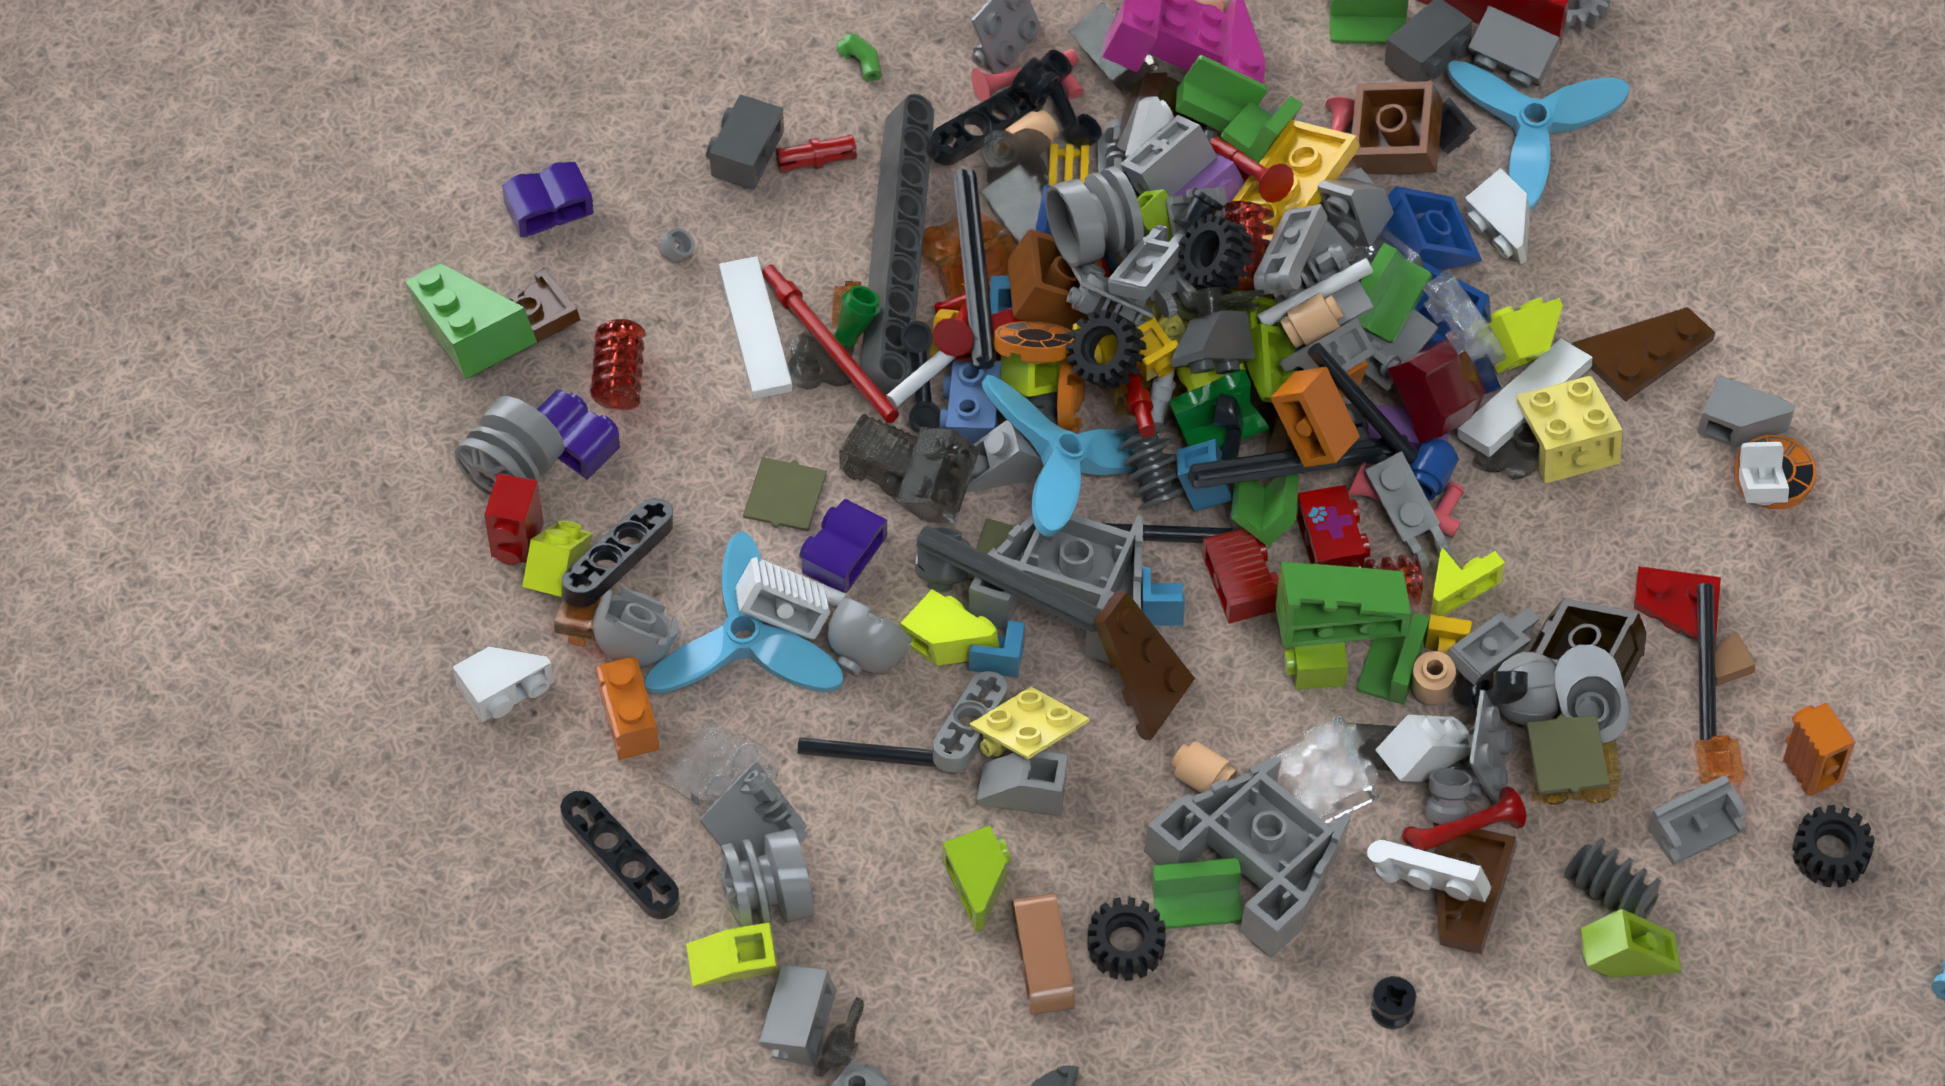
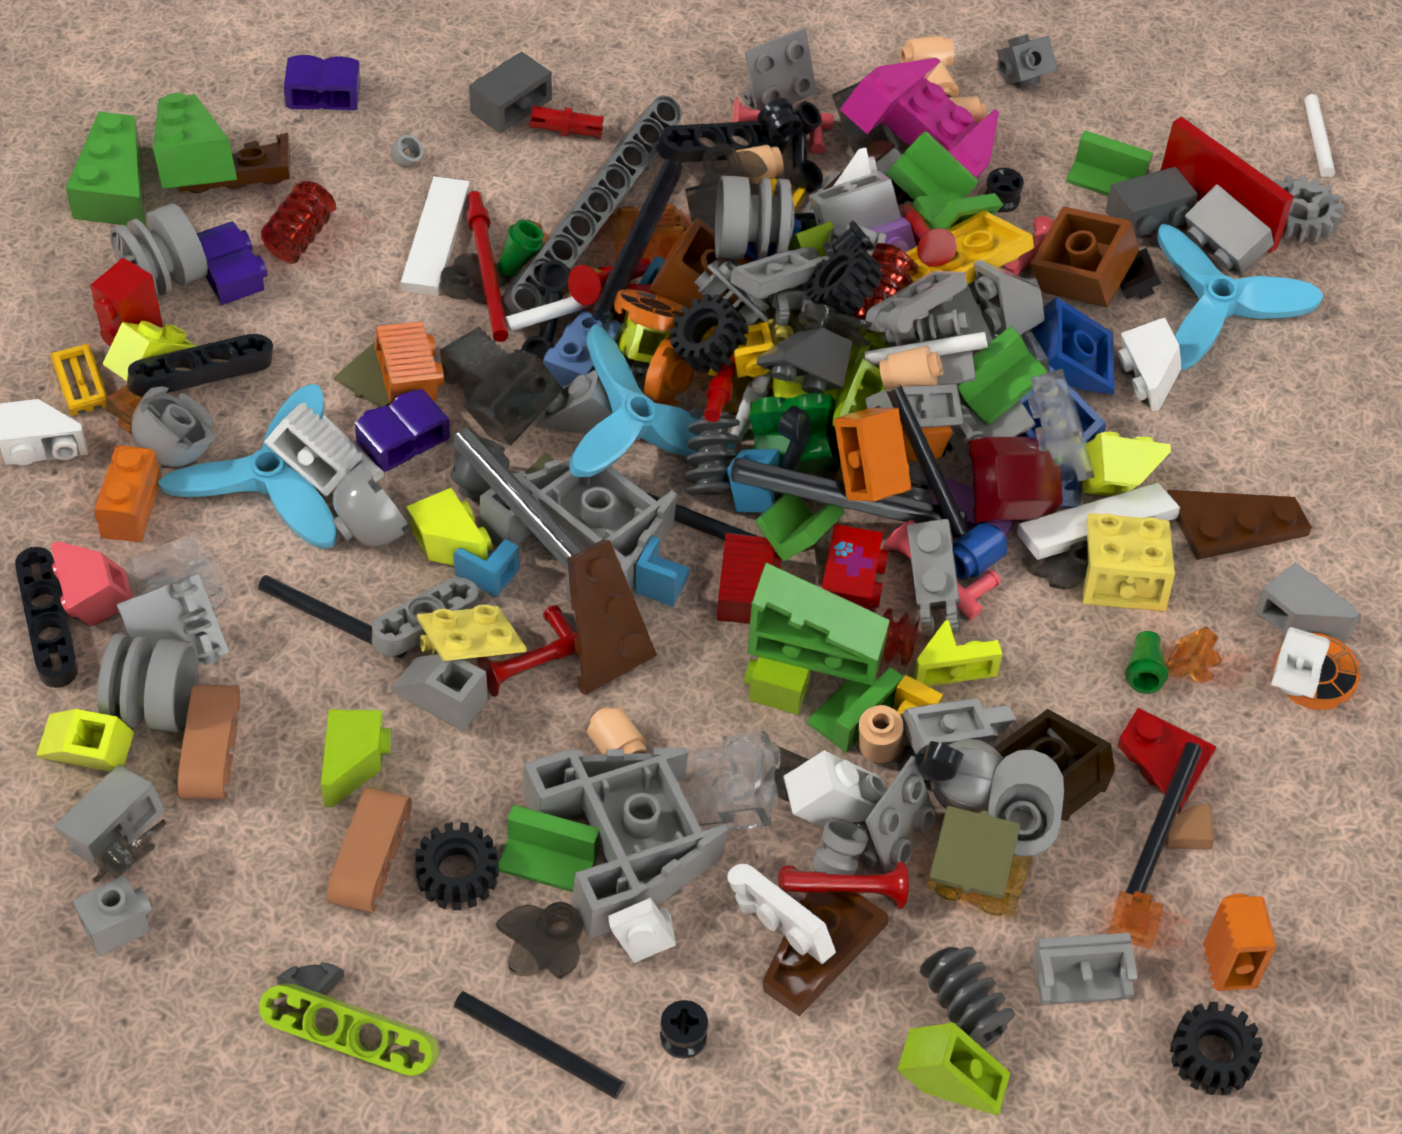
camera: 20 degrees right, 5 degrees down
(402, 381) = (109, 173): none -> bright green wedge
(522, 631) = (86, 402): none -> yellow tile
(648, 805) = (89, 583): none -> coral slope
(811, 474) = (407, 359): none -> orange brick
(846, 912) = (207, 741): none -> nougat beam
(856, 46) = (654, 64): bright green arm -> none
(1110, 699) = (499, 671): none -> red piece
(1231, 979) = (539, 944): none -> clear smoke plate
(1277, 1063) = (539, 1044): none -> black bar
(1279, 66) = (1007, 186): none -> black wheel
(1320, 932) = (643, 929): none -> white bracket
(1628, 522) = (1147, 665): none -> green cone
(1664, 498) = (1192, 655): none -> clear orange tile

